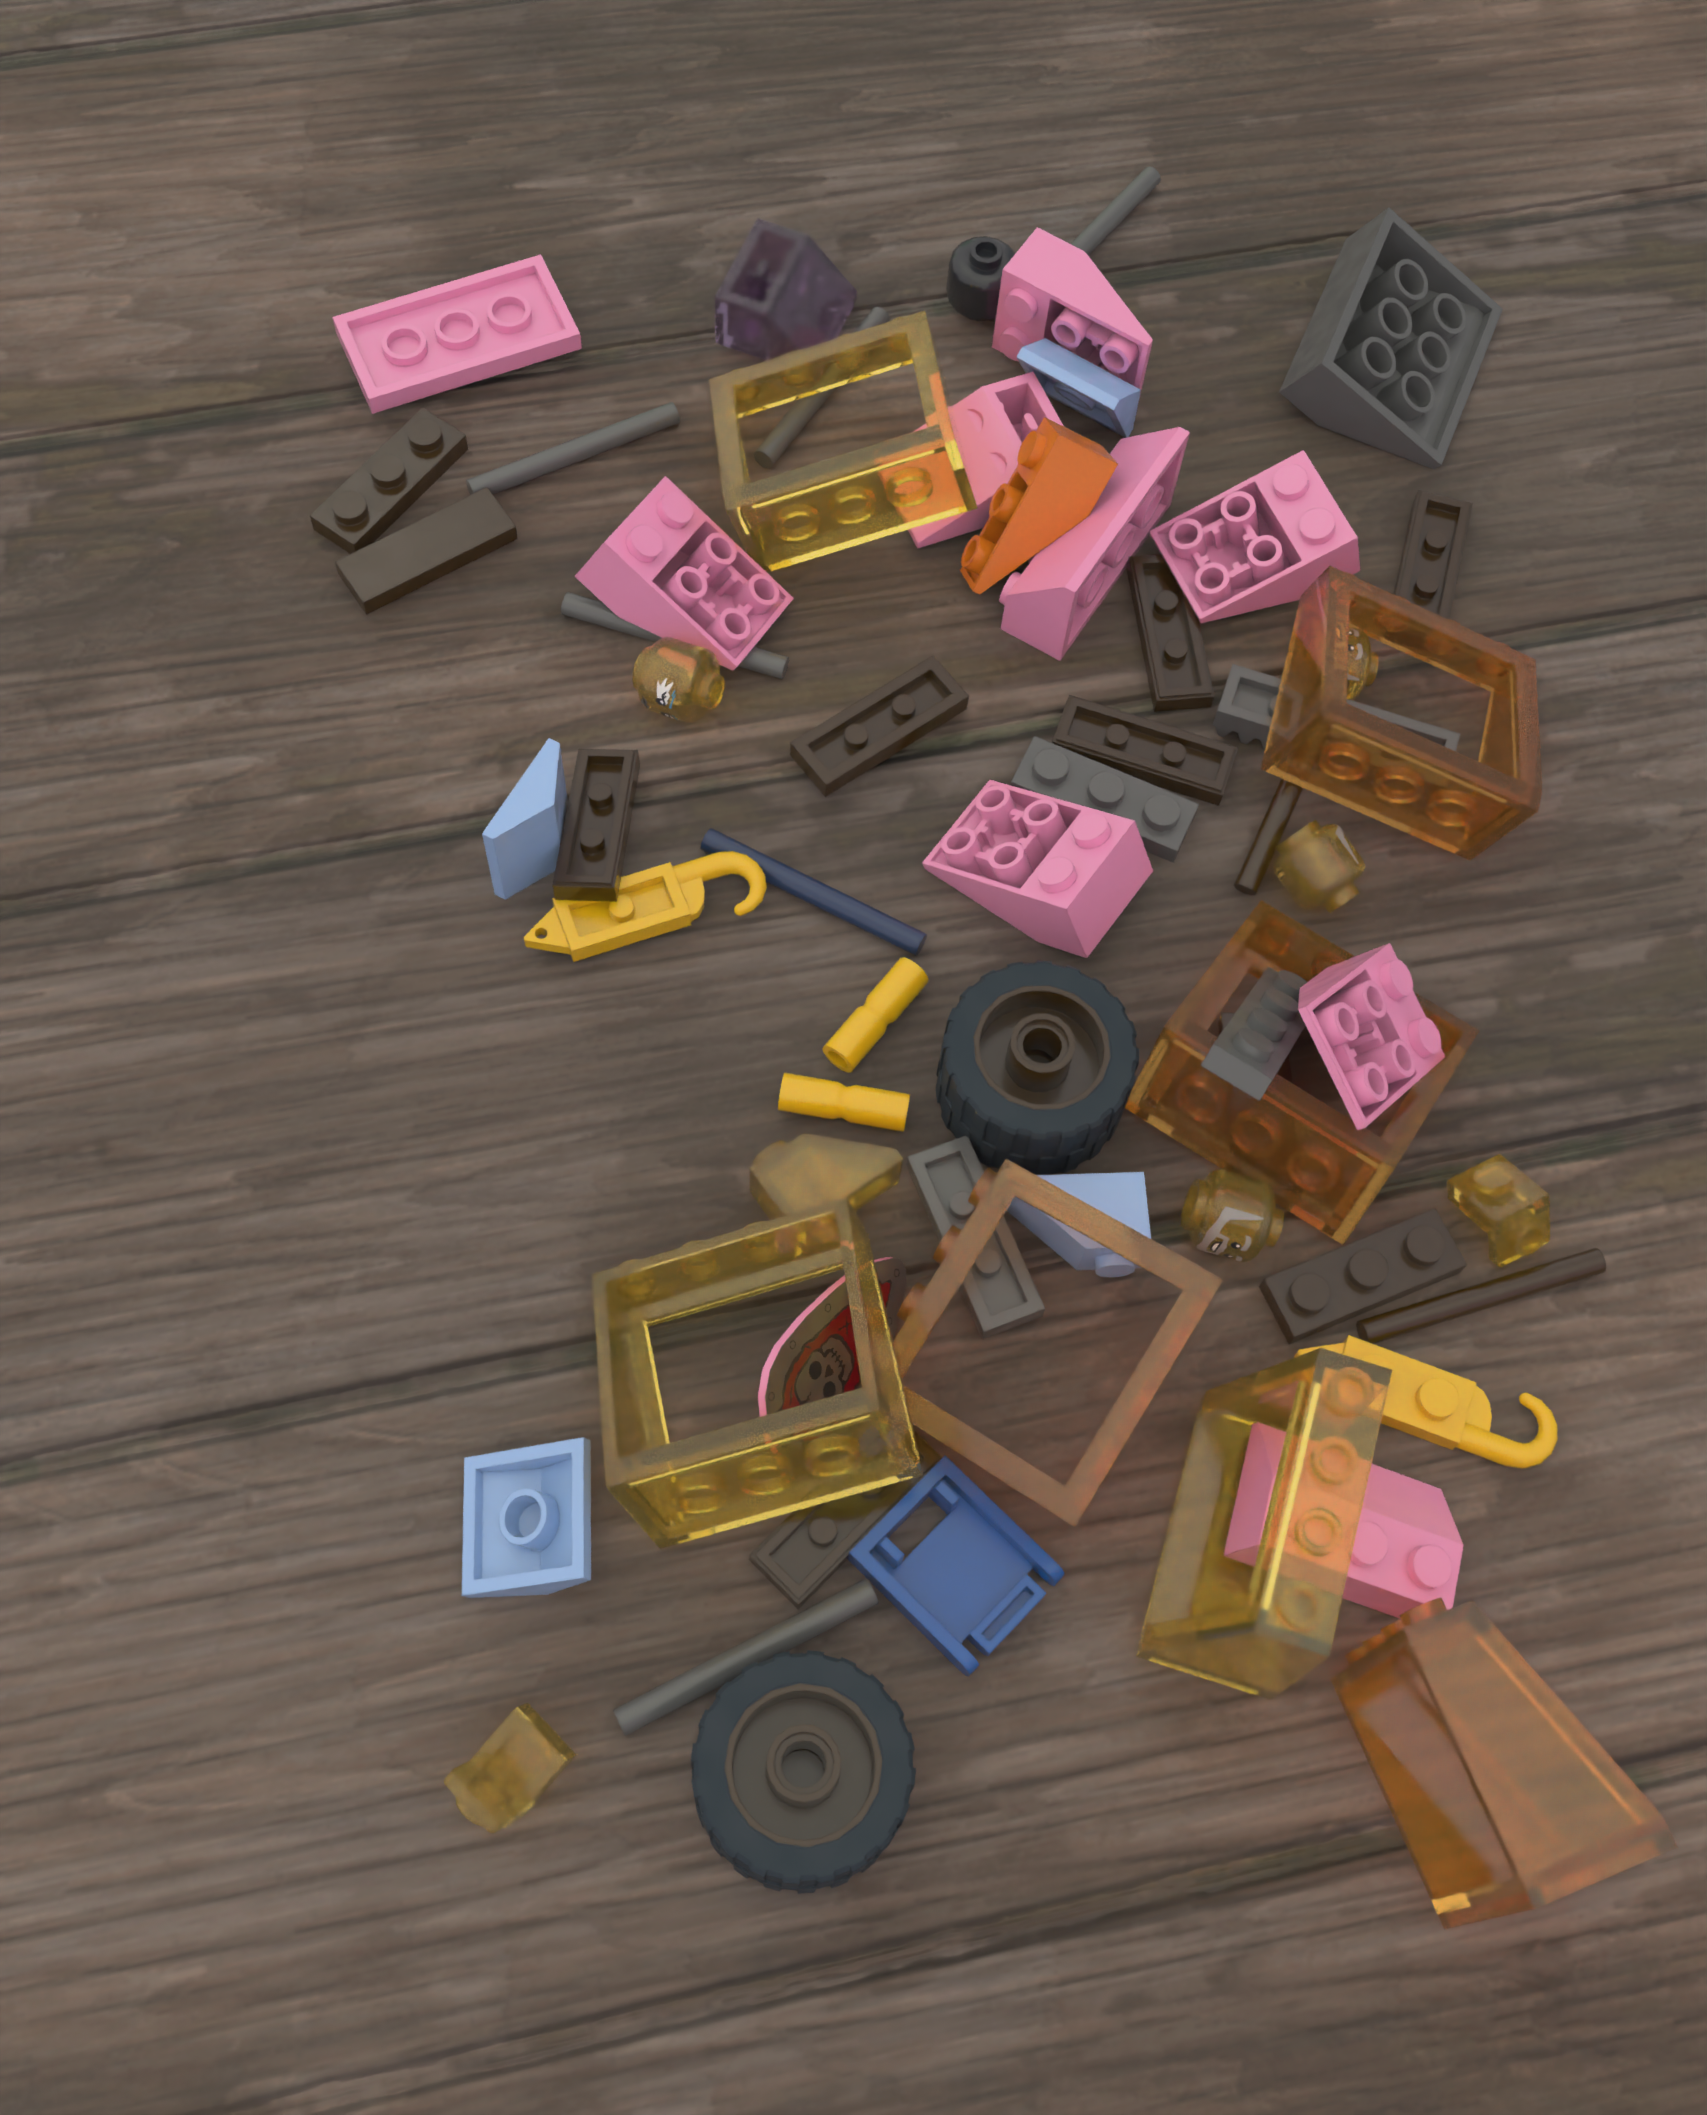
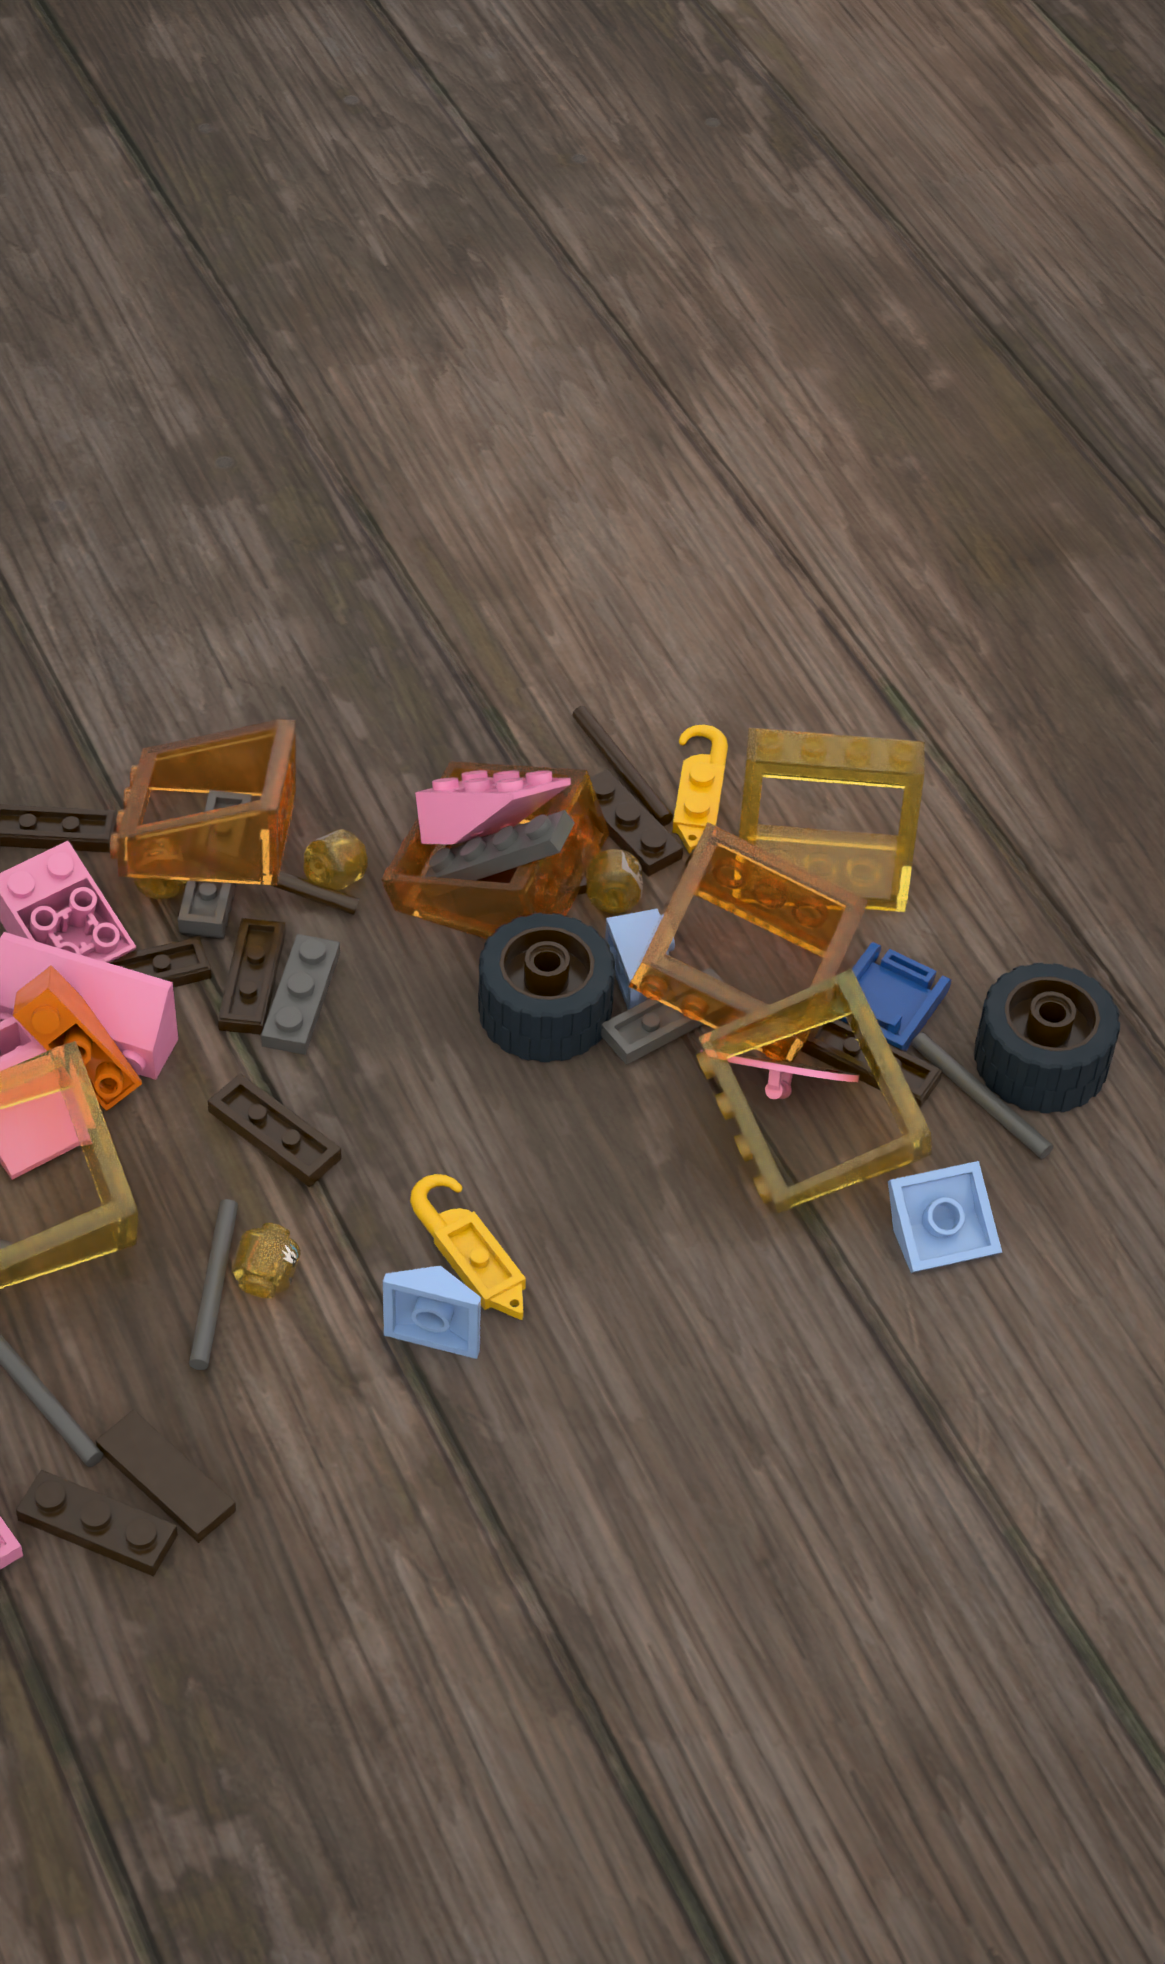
camera: 100 degrees left, 15 degrees down
(509, 1770) = (1099, 1193): clear yellow bracket -> none
(596, 825) = (362, 1293): dark brown tile -> none
(684, 578) = (169, 1274): bright pink slope -> none
(821, 1170) = (663, 1102): clear yellow slope -> none
(822, 895) = (425, 1151): dark blue bar -> none
(834, 1100) = (591, 1107): yellow piece -> none
(871, 1020) = (513, 1095): yellow piece -> none
(1043, 864) = (371, 1016): bright pink slope -> none
(1403, 1541) = (801, 819): bright pink slope -> none
(1488, 1768) = (979, 671): clear orange windscreen -> none
(1505, 1206) = (561, 749): clear yellow bracket -> none

